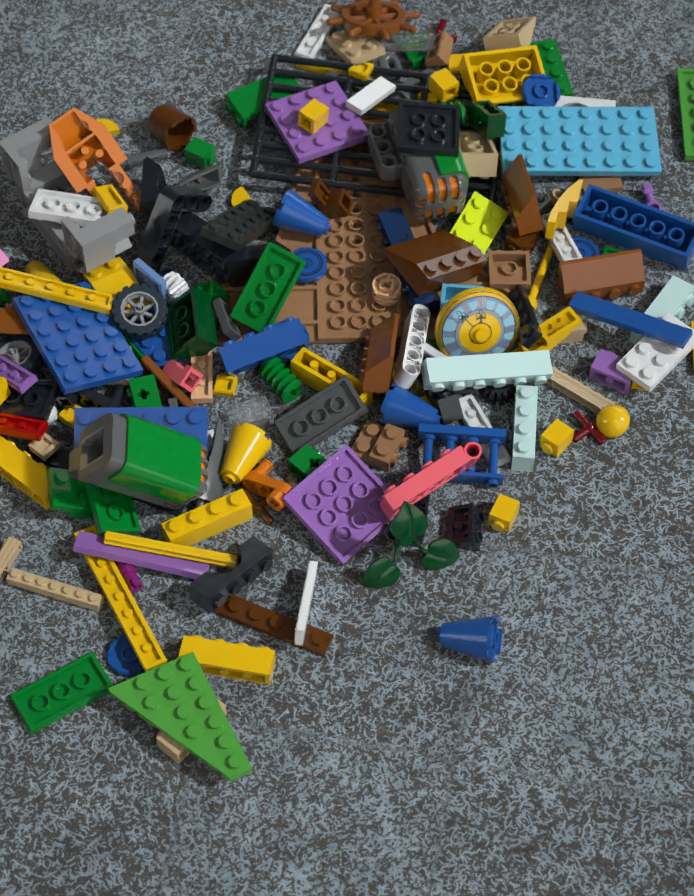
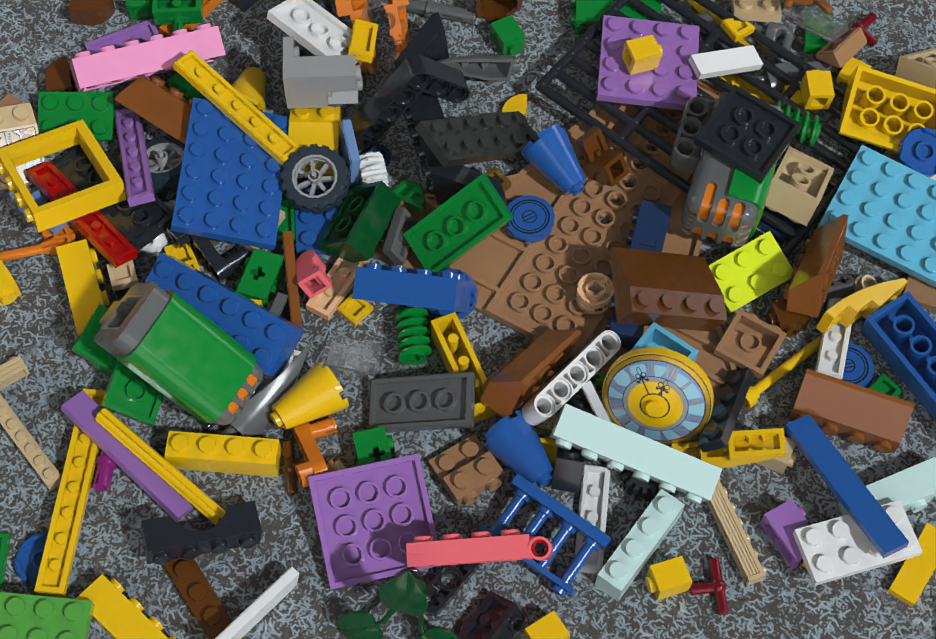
camera: 30 degrees right, 5 degrees up
(487, 119) = (838, 154): dark green brick -> none
(613, 421) = (749, 595): yellow hair -> none

